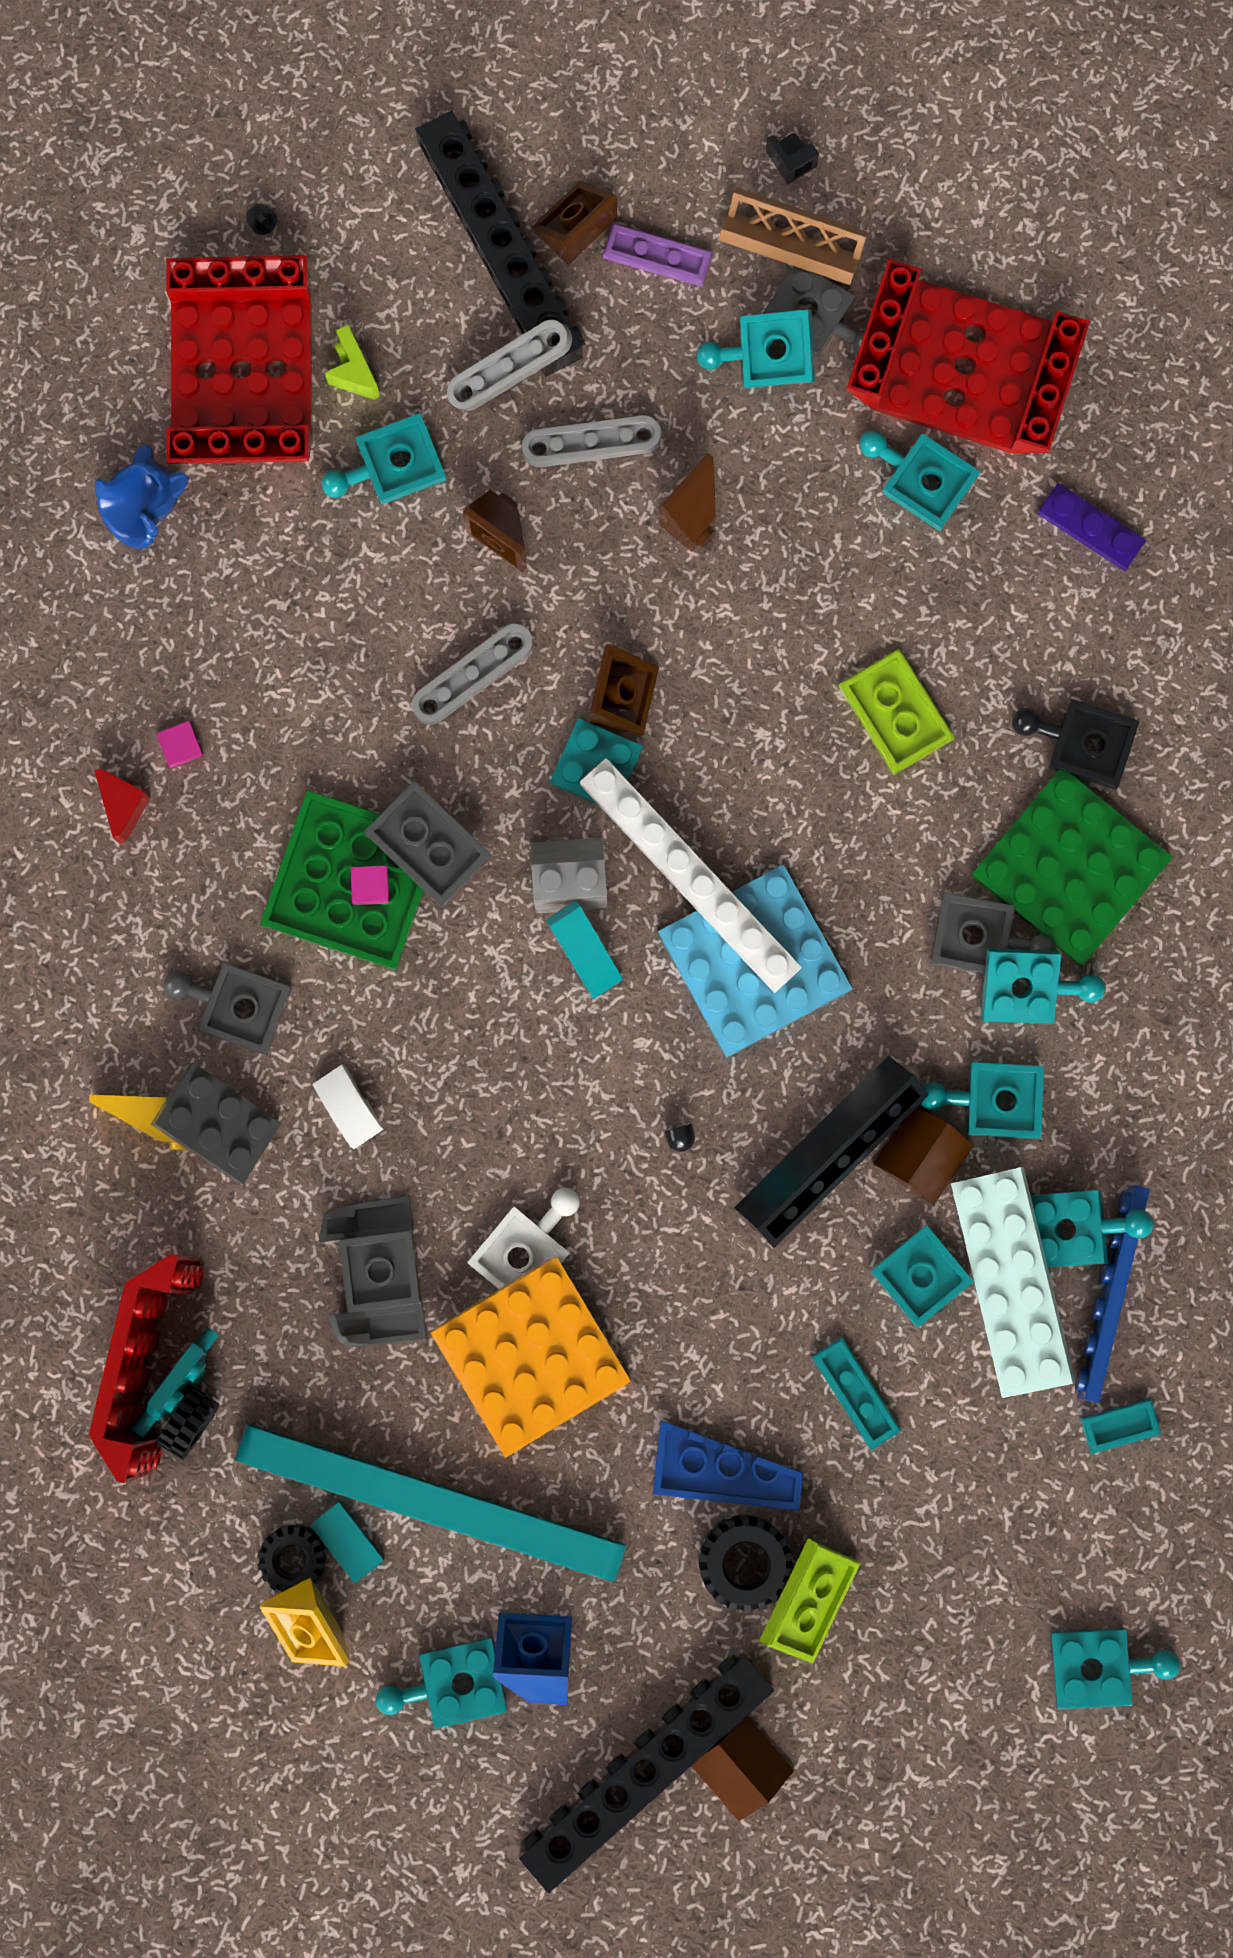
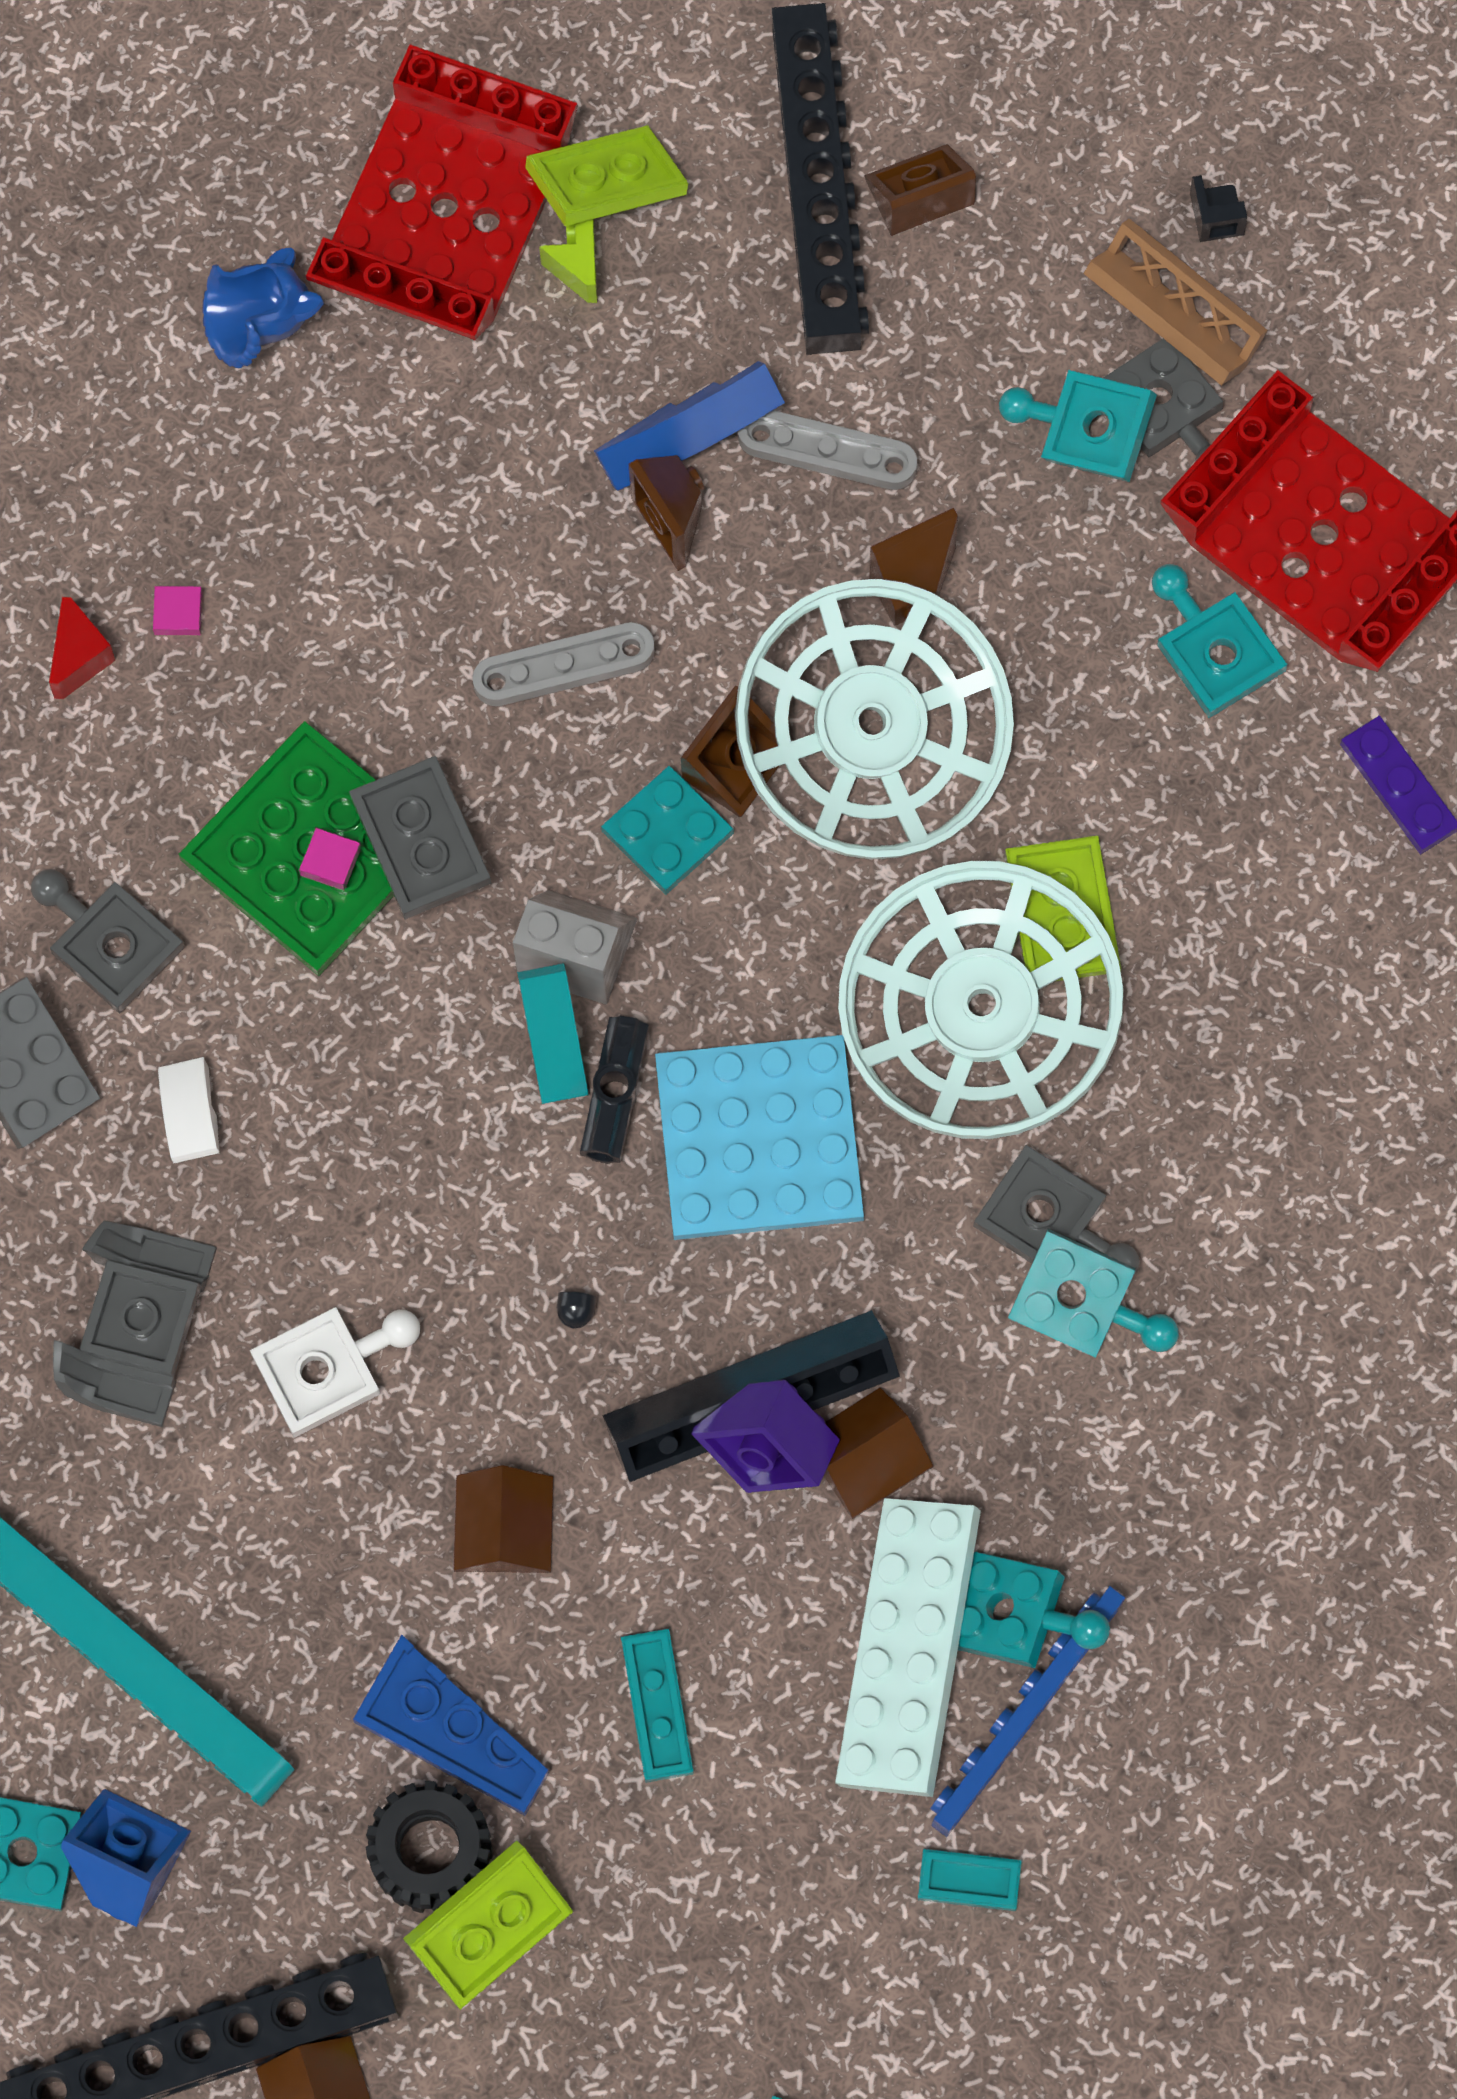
camera: 25 degrees right, 10 degrees down
(267, 224) = (549, 54): black hinge -> none
(349, 301) = (606, 175): none -> lime tile
(389, 480) = (563, 363): teal plate -> none
(489, 463) = (692, 424): none -> blue slope
(509, 365) = (763, 320): light grey plate -> none
(530, 1356) = (277, 1493): light orange plate -> none
(635, 947) = (609, 1116): none -> black piece
(657, 254) = (1004, 264): medium lavender tile -> none
(690, 875) = (722, 1001): white plate -> none
(695, 1309) = (503, 1521): none -> reddish brown slope
(728, 617) = (896, 702): none -> light aqua dish
(860, 1179) = (768, 1438): none -> dark purple slope
(871, 778) = (974, 973): none -> light aqua dish
(921, 1276) = (798, 1595): teal plate -> none
(983, 1113) = (979, 1395): teal plate -> none
(1070, 751) = (1280, 1012): black plate -> none
(1071, 866) = (1200, 1179): green plate -> none

